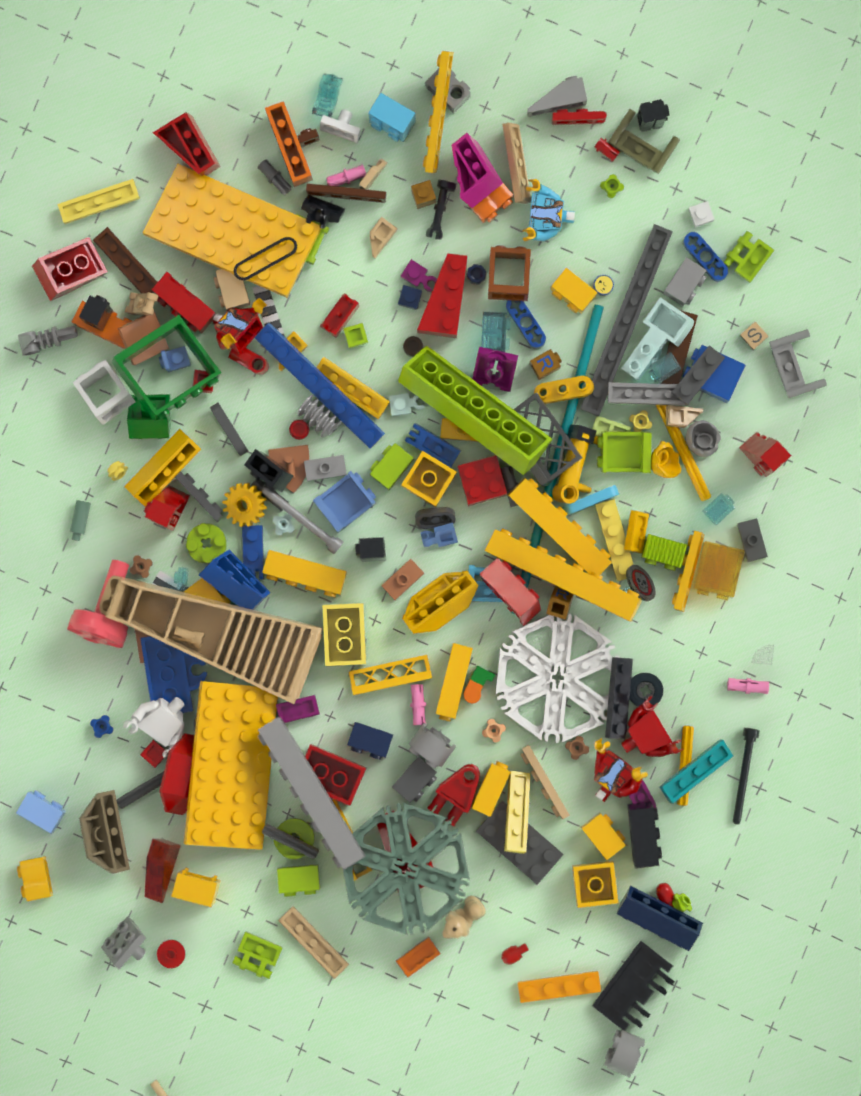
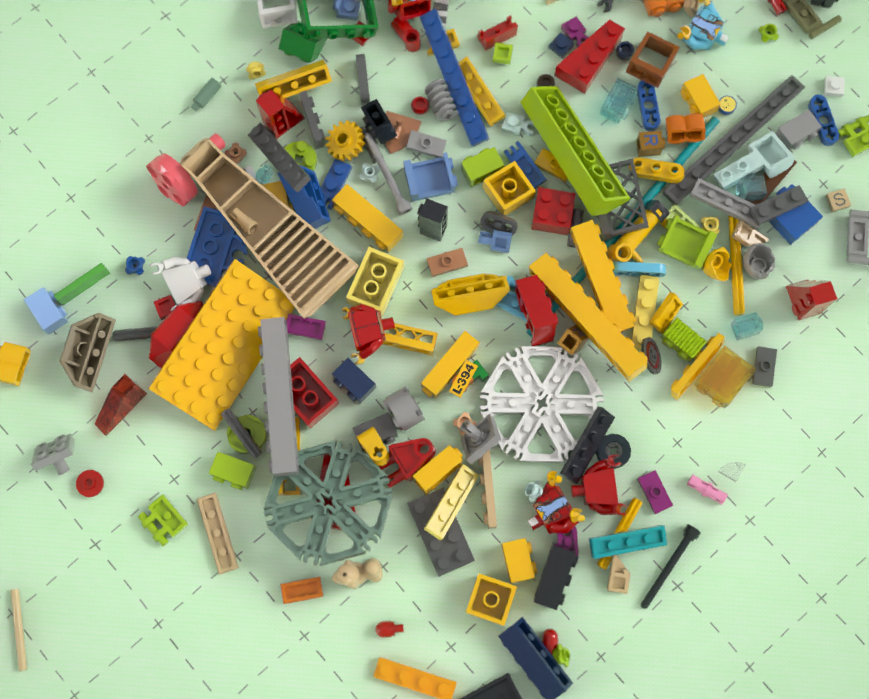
camera: 20 degrees right, 10 degrees down
(61, 769) = (81, 284): none -> bright green tile
(191, 557) = (279, 157): none -> dark grey plate
(196, 888) = (139, 434): yellow container -> none
(360, 687) = (367, 330): none -> red torso
(418, 704) = (409, 370): bright pink pin -> none
(418, 795) = (372, 445): none -> yellow piece
(473, 690) = (463, 378): none -> yellow sticker
(506, 367) = (618, 126): magenta brick -> none
(515, 741) = (479, 438): none -> light grey plate
(573, 333) = (685, 128): none -> orange brick
(582, 748) = (530, 477): medium nougat plate -> none
(588, 764) = (533, 490): none -> light aqua plate
(701, 711) = (655, 492): none -> magenta plate
(701, 806) = (618, 576): none -> tan tile

